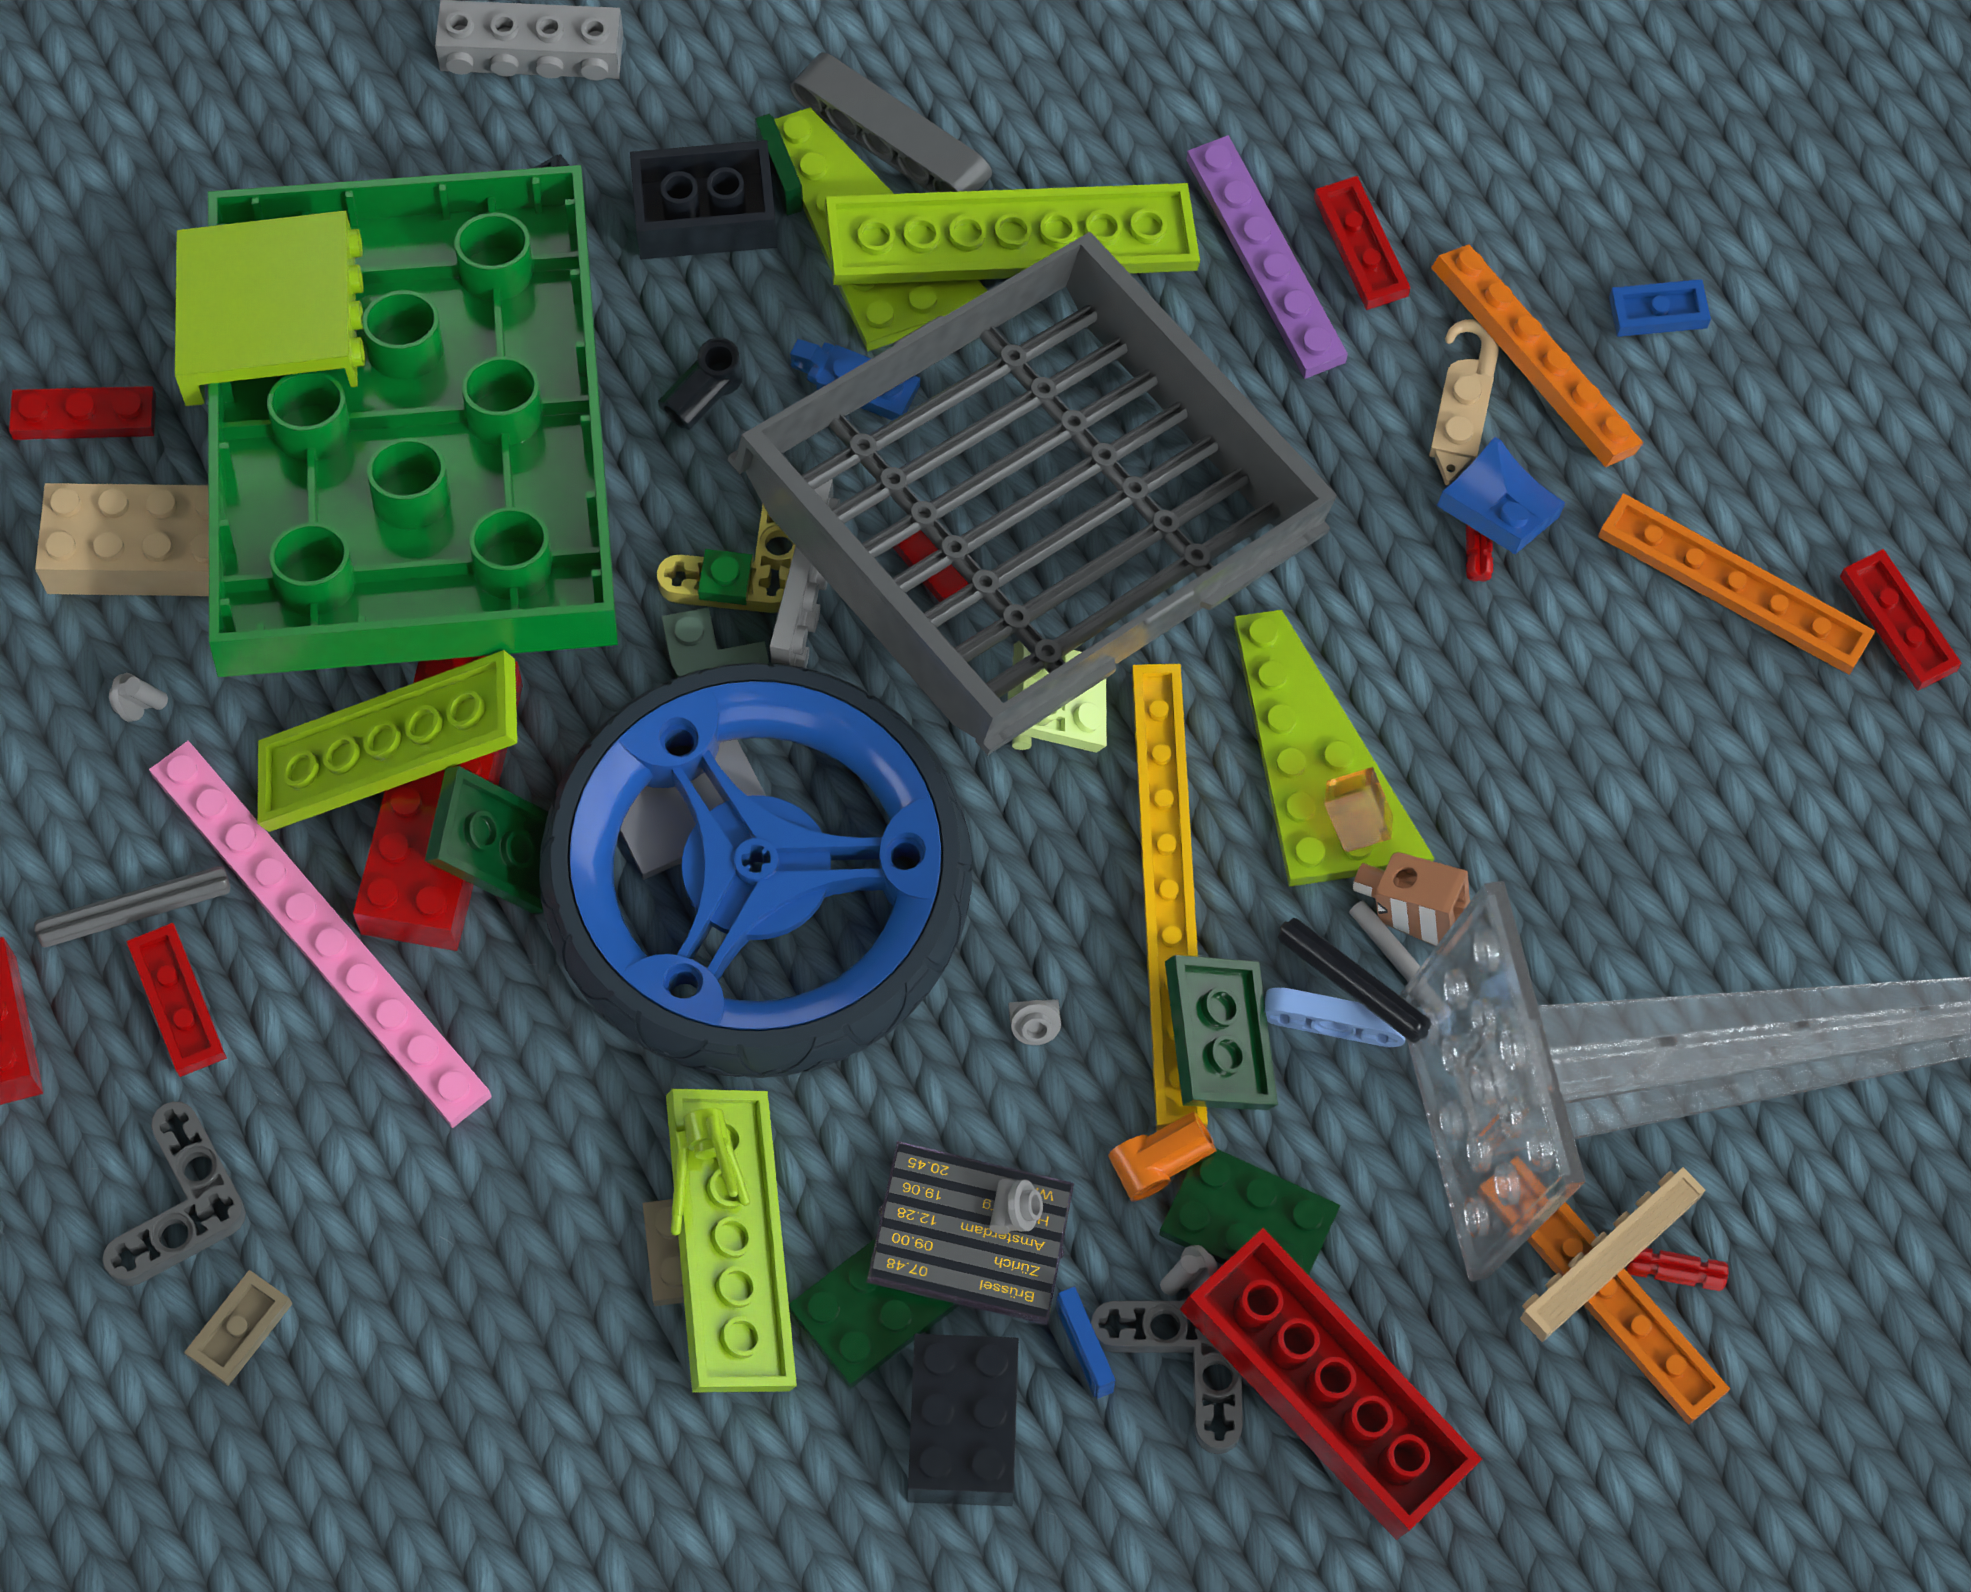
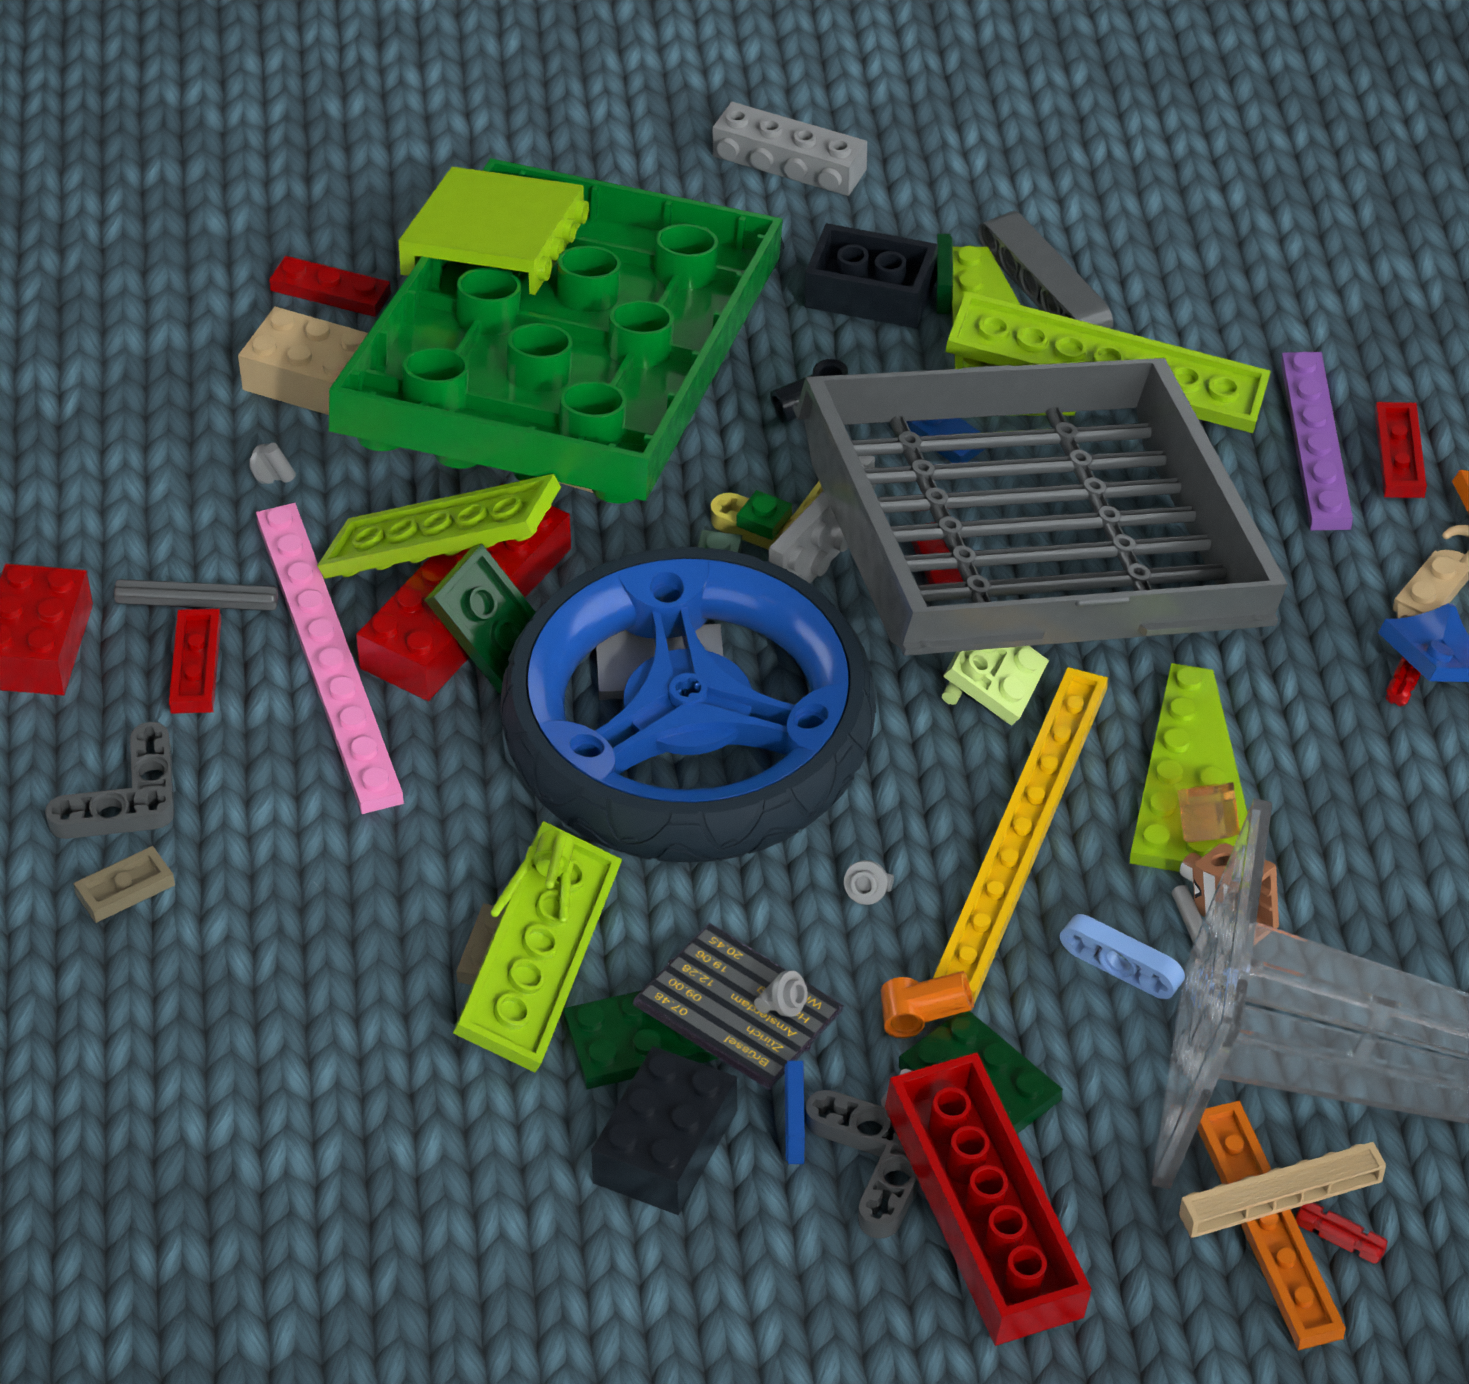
camera: 25 degrees right, 20 degrees down
(1221, 1033) = (1015, 929): dark green plate -> none
(1355, 980) = (1148, 927): black axle -> none

